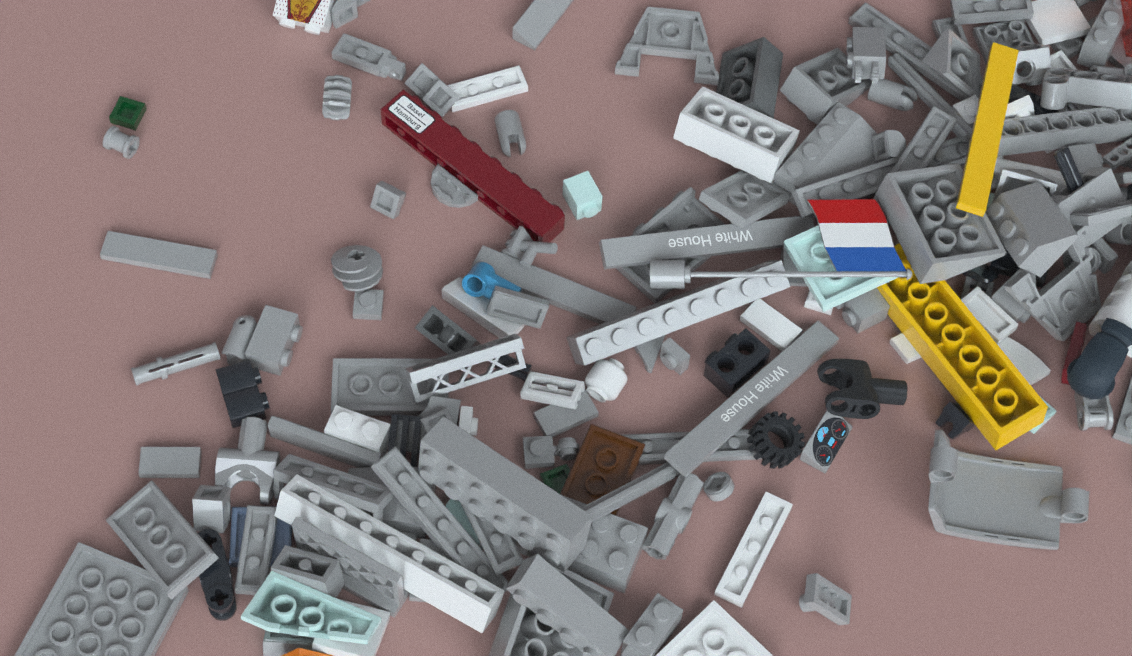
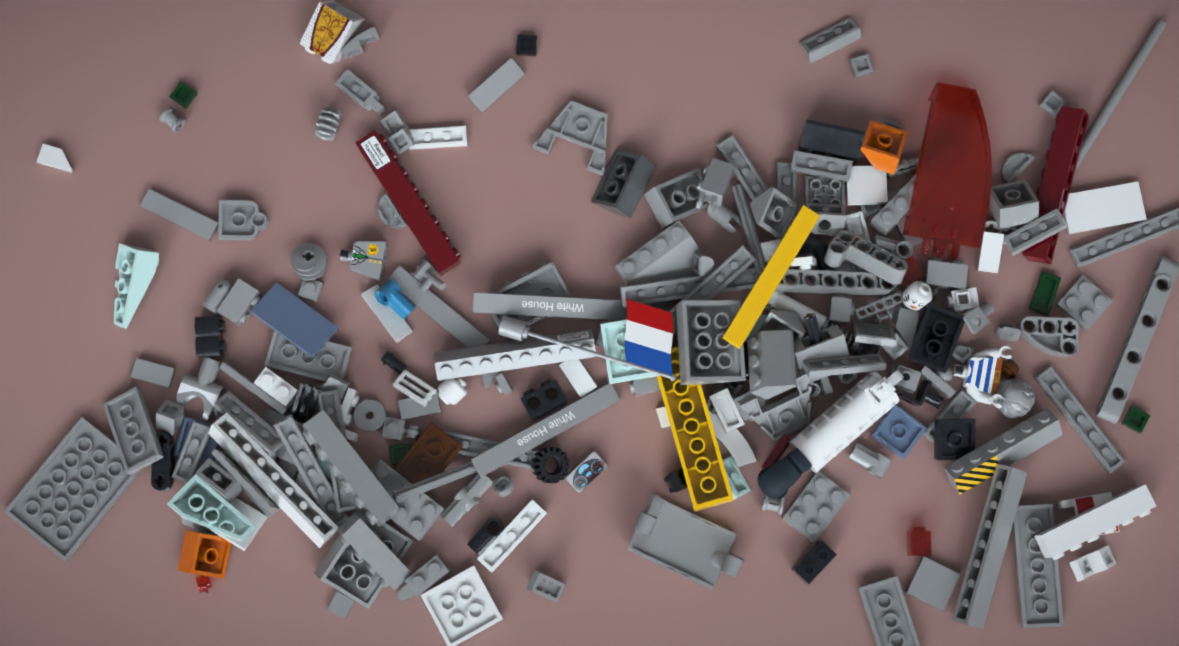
camera: 20 degrees right, 20 degrees up
(112, 335) = (135, 273): none -> light aqua wedge
(141, 373) = (171, 302): light grey pin -> none
(246, 241) = (240, 220): none -> light grey plate
(358, 342) = (294, 320): none -> sand blue tile
(387, 199) = (344, 213): light grey tile -> none
(436, 246) = (367, 258): none -> light grey torso
(445, 332) = (355, 332): dark grey brick -> none
(466, 358) = (337, 361): fence -> none
(503, 431) = (363, 409): none -> light grey piece
(510, 130) = (443, 177): light grey piece -> none
(517, 307) = (407, 322): light grey tile -> none
(582, 195) = (478, 245): light aqua brick -> none
(717, 557) = (485, 537): none -> black piece
(736, 134) = (598, 226): white brick -> none
(744, 198) = (588, 278): light grey plate -> none
(859, 389) = (619, 443): black connector -> none

